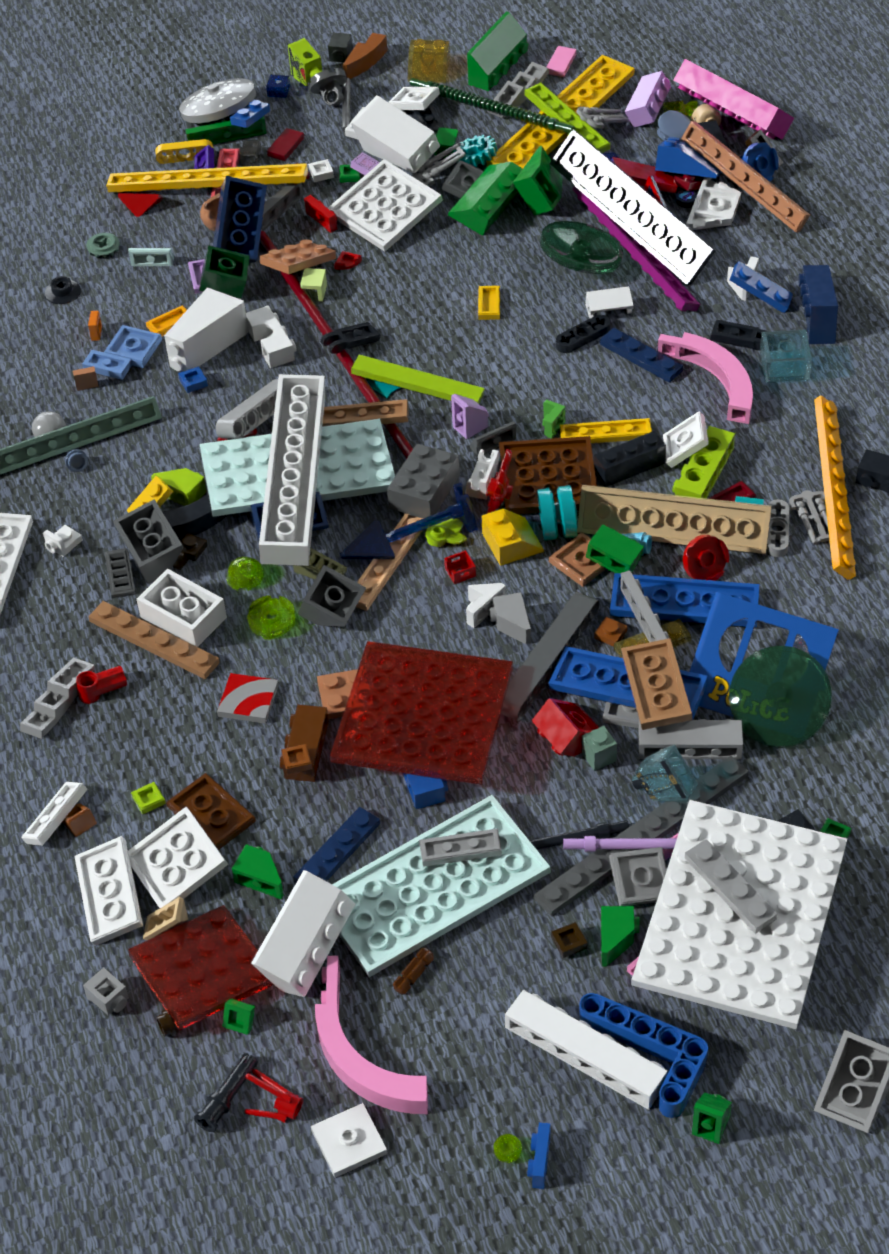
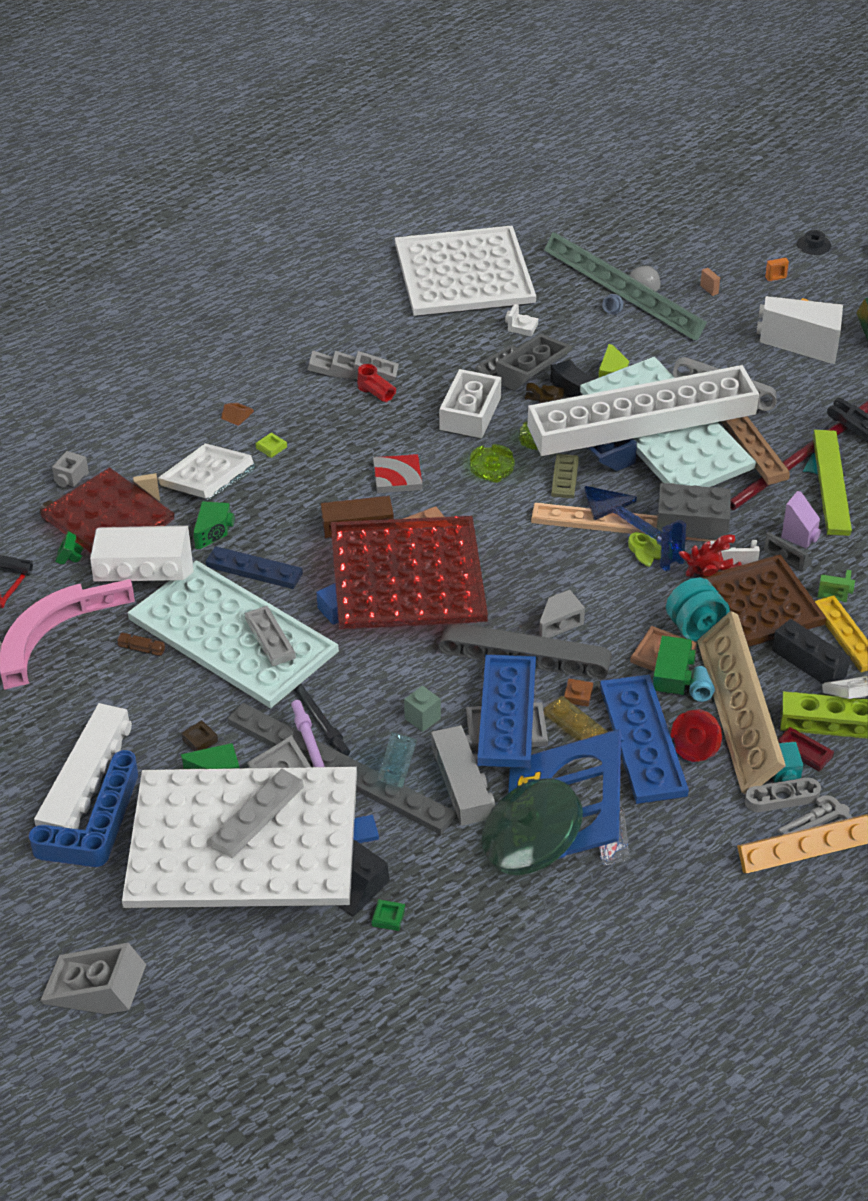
camera: 70 degrees right, 5 degrees down
(54, 813) = (234, 396): white tile -> none
(108, 364) = (736, 290): medium blue plate -> none
(108, 891) = (168, 445): white tile -> none
(134, 345) = (757, 293): medium blue plate -> none
(154, 640) = (429, 421): medium nougat plate -> none
(157, 490) = (587, 353): yellow plate -> none
(193, 379) = (748, 343): blue plate -> none
(214, 810) = (269, 484): reddish brown tile -> none
(275, 344) = (840, 368): white arch -> none
(296, 759) = (326, 507): dark orange tile -> none
(331, 599) = (522, 486): dark grey slope -> none
(464, 563) = (608, 563): red piece -> none
(481, 600) = (577, 586): white slope -> none
(509, 536) = (654, 585): yellow slope -> none
(563, 726) = (445, 678): red slope -> none
(641, 608) = (595, 700): light grey plate -> none
(656, 684) = (499, 720): medium nougat plate -> none
(711, 1117) = (26, 869): green slope -> none

